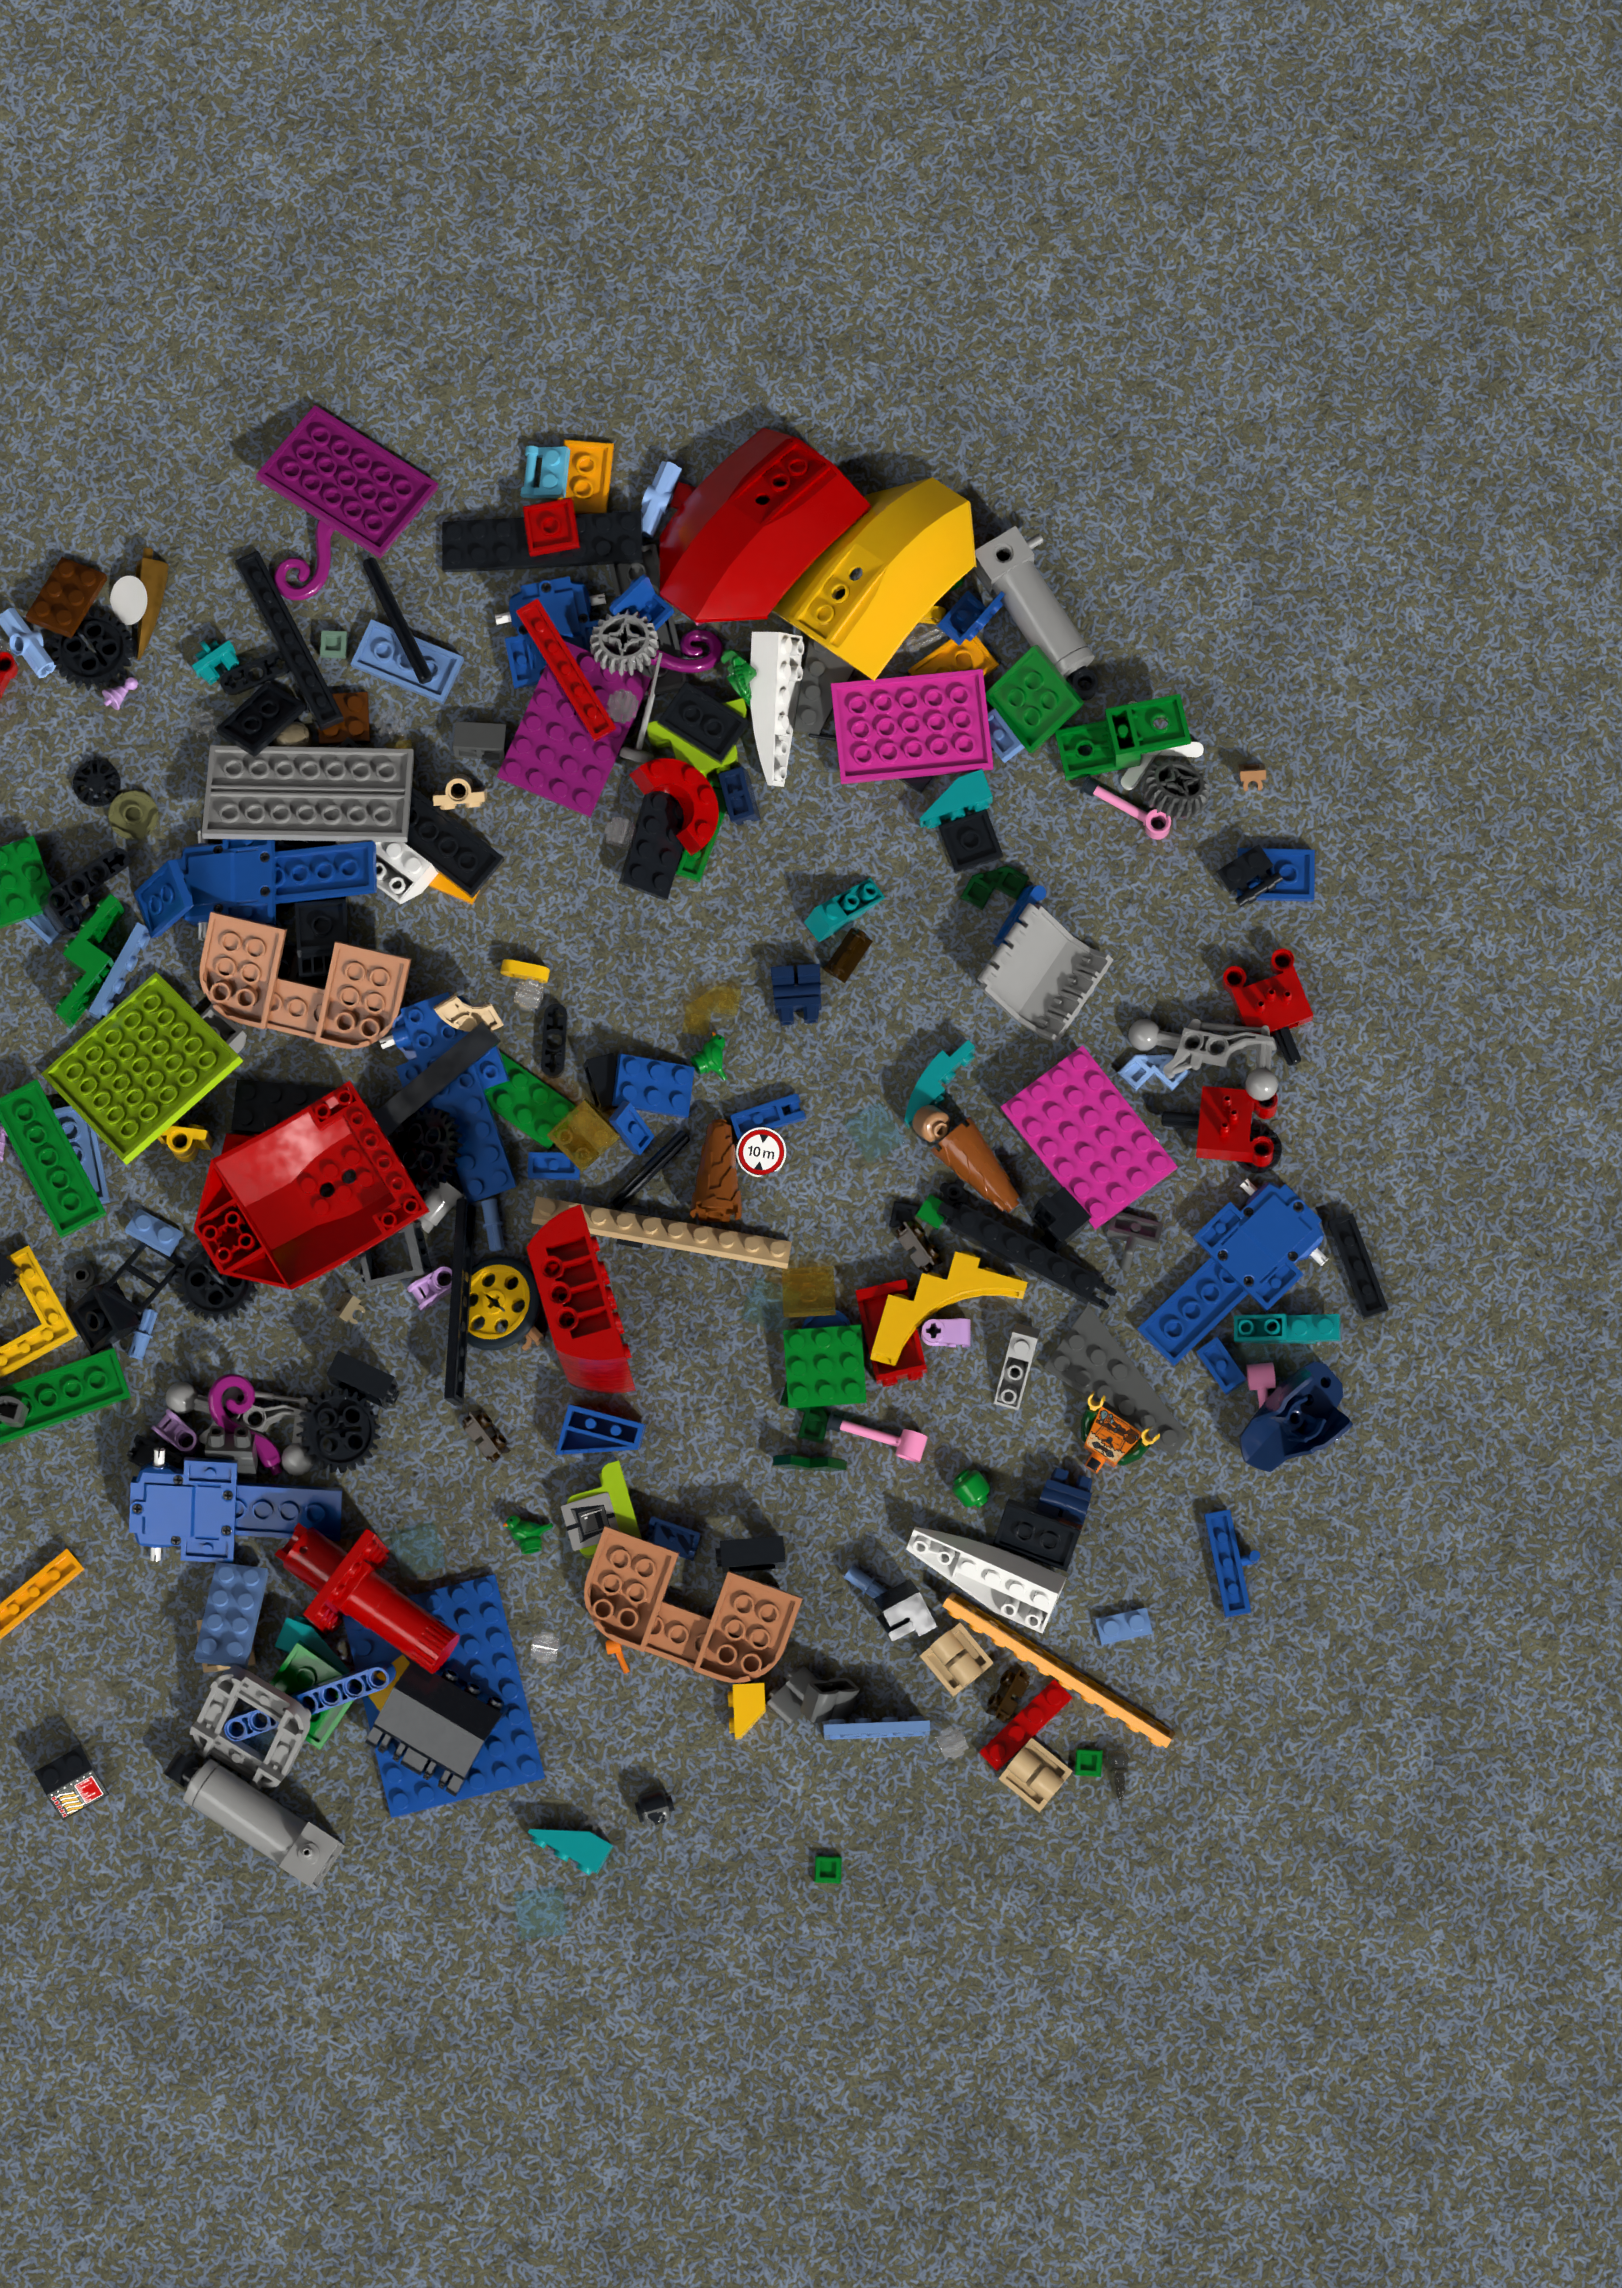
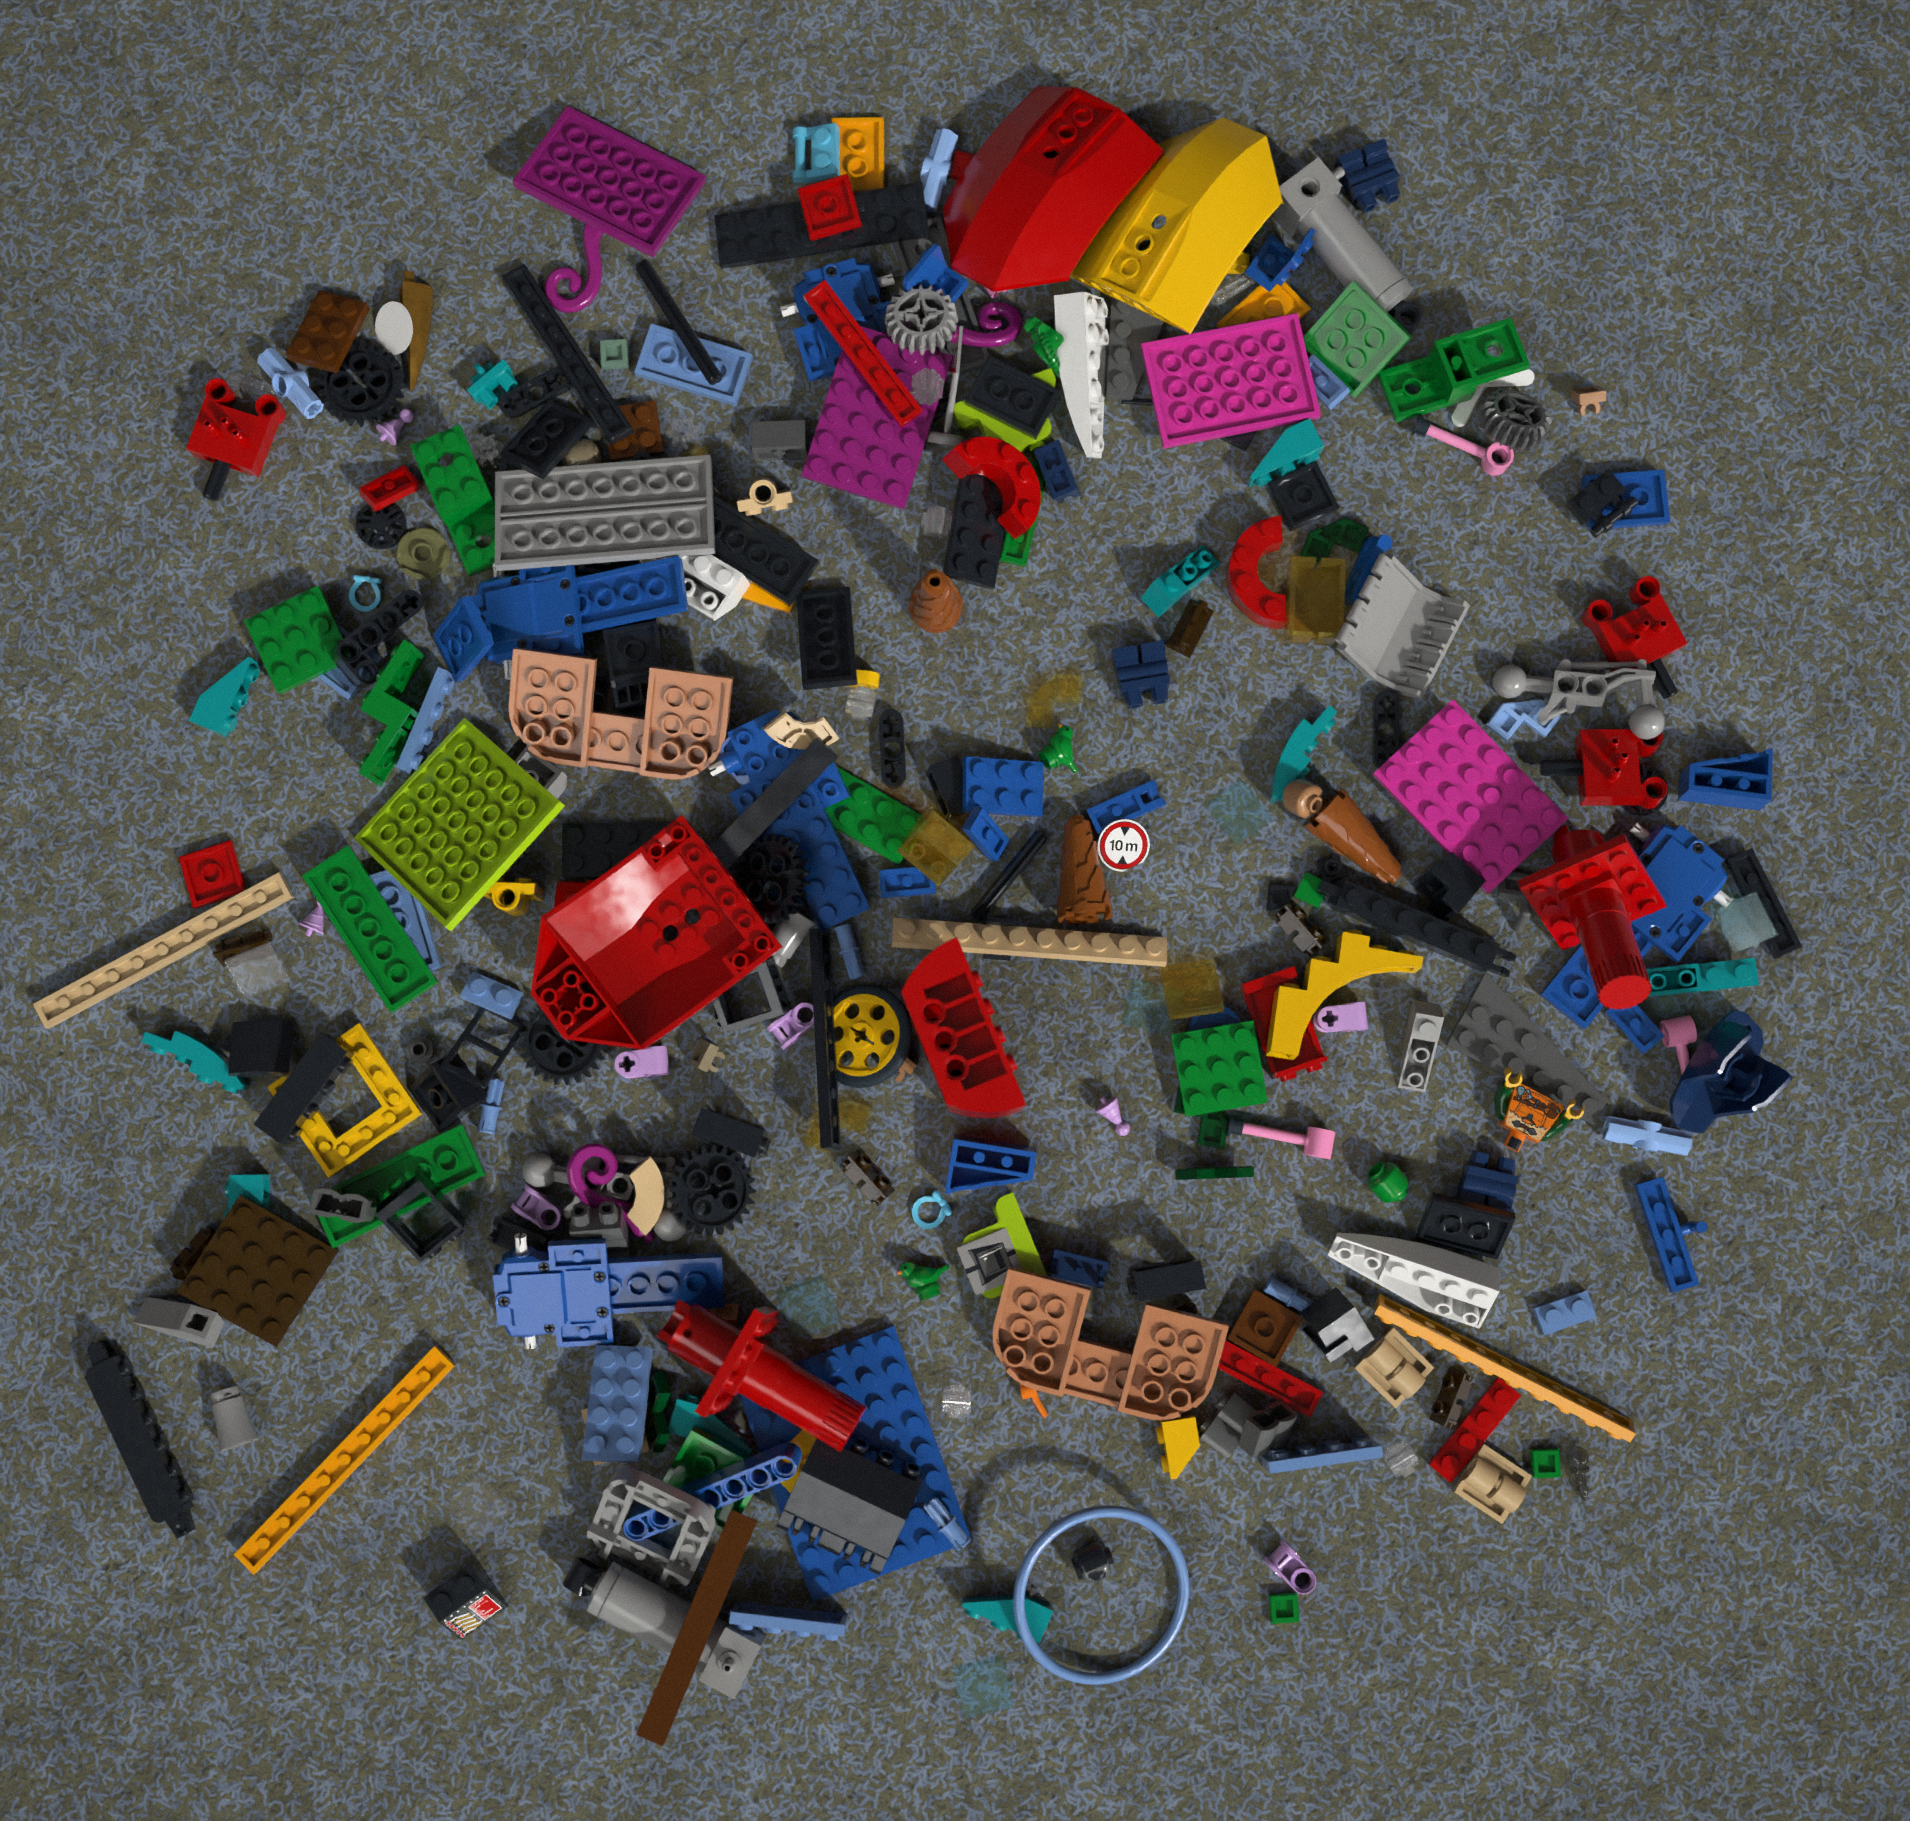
camera: 10 degrees left, 5 degrees up
(52, 1406) = (404, 1194): none -> black window
(85, 839) = (375, 585): none -> medium azure piece
(109, 750) = (389, 488): none -> red plate
(175, 765) = (459, 495): none -> green bracket
(265, 1644) = (657, 1426): none -> dark green tile
(281, 1428) = (648, 1197): none -> tan tile
(283, 1818) = (696, 1628): none -> reddish brown tile
(292, 1308) = (648, 1062): none -> lavender piece
(357, 1826) = (780, 1618): none -> medium blue plate
(477, 1378) = (852, 1117): none -> clear yellow tile
(503, 931) = (826, 638): none -> black plate
(522, 1755) = (947, 1523): none -> medium blue axle
(555, 1473) = (935, 1197): none -> medium azure piece
(602, 1780) = (1030, 1559): none -> medium blue piece
(610, 908) = (935, 603): none -> dark orange cone
(721, 1399) = (1110, 1110): none -> lavender piece
(836, 1656) = (1269, 1379): none -> red plate
(837, 1831) = (1287, 1564): none -> lavender piece
(840, 1611) = (1264, 1328): none -> reddish brown plate
(905, 895) = (1242, 576): none -> red brick
(966, 940) = (1314, 600): none -> clear yellow piece
(1014, 1061) = (1378, 710): none -> black beam
(1068, 548) = (1368, 175): none -> dark blue hips
(1183, 1243) = (1591, 901): none -> red piece
(1221, 1470) = (1647, 1135): none -> light blue piece
(1337, 1148) = (1729, 782): none -> blue wedge
(1338, 1282) = (1745, 922): none -> clear light blue piece

